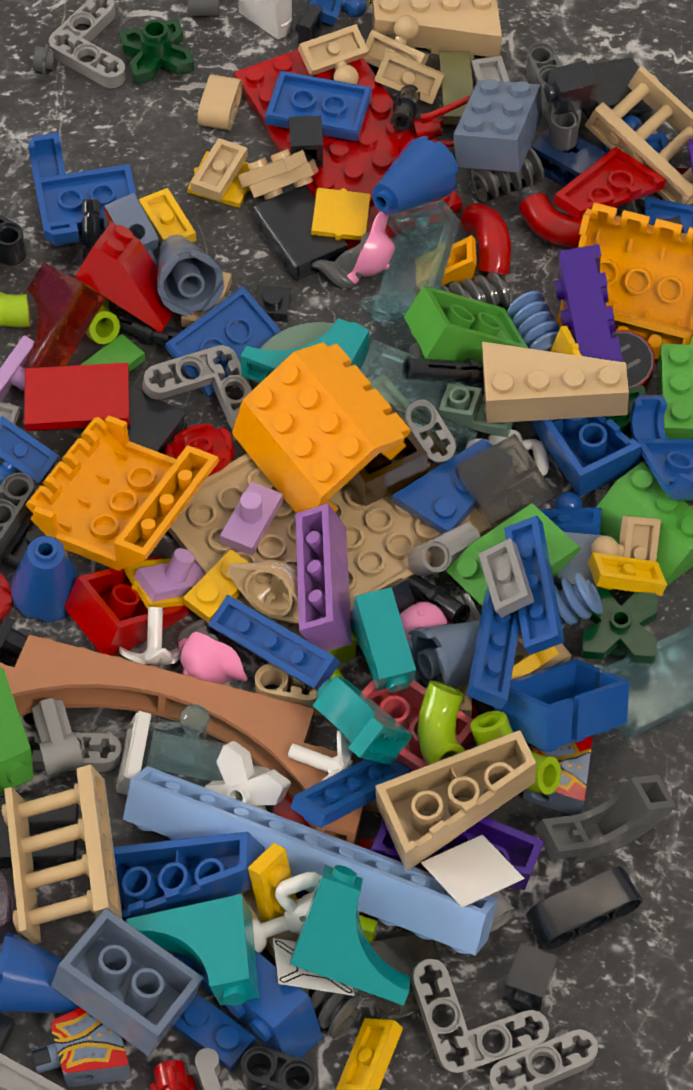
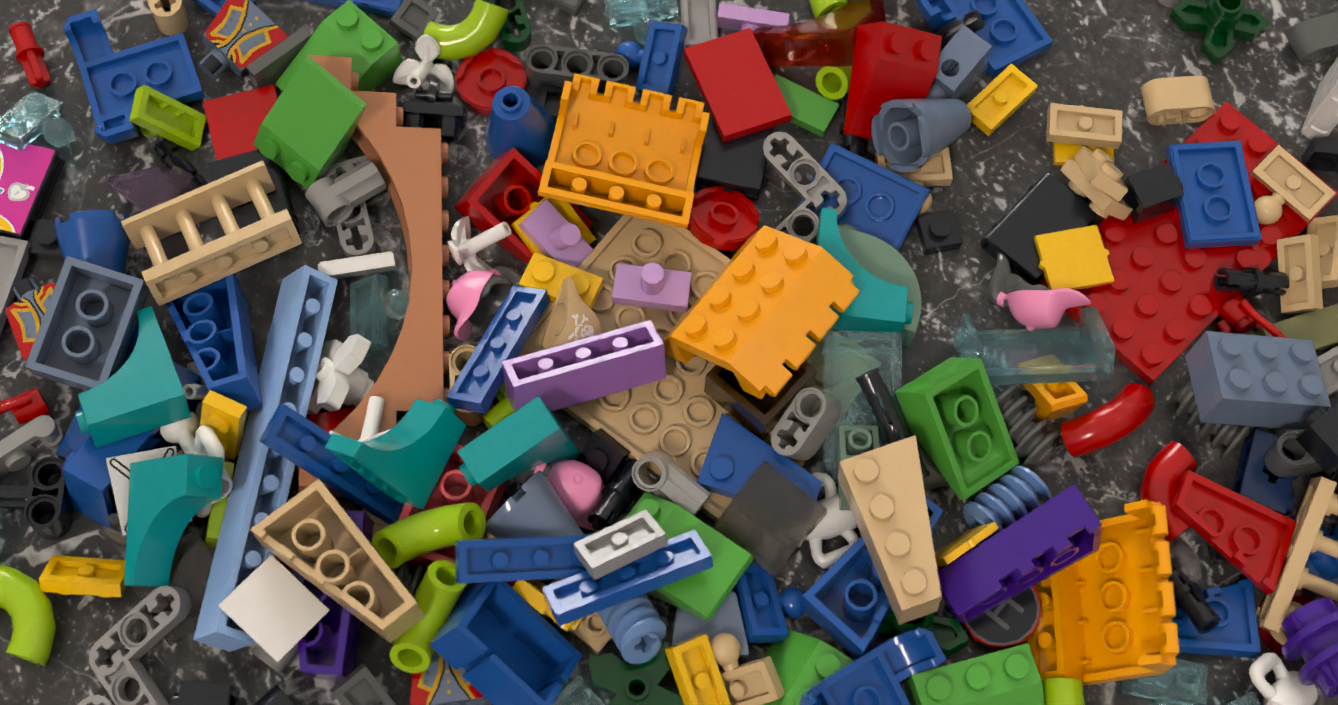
camera: 70 degrees right, 10 degrees up
(417, 177) = (1132, 310): blue cone -> none

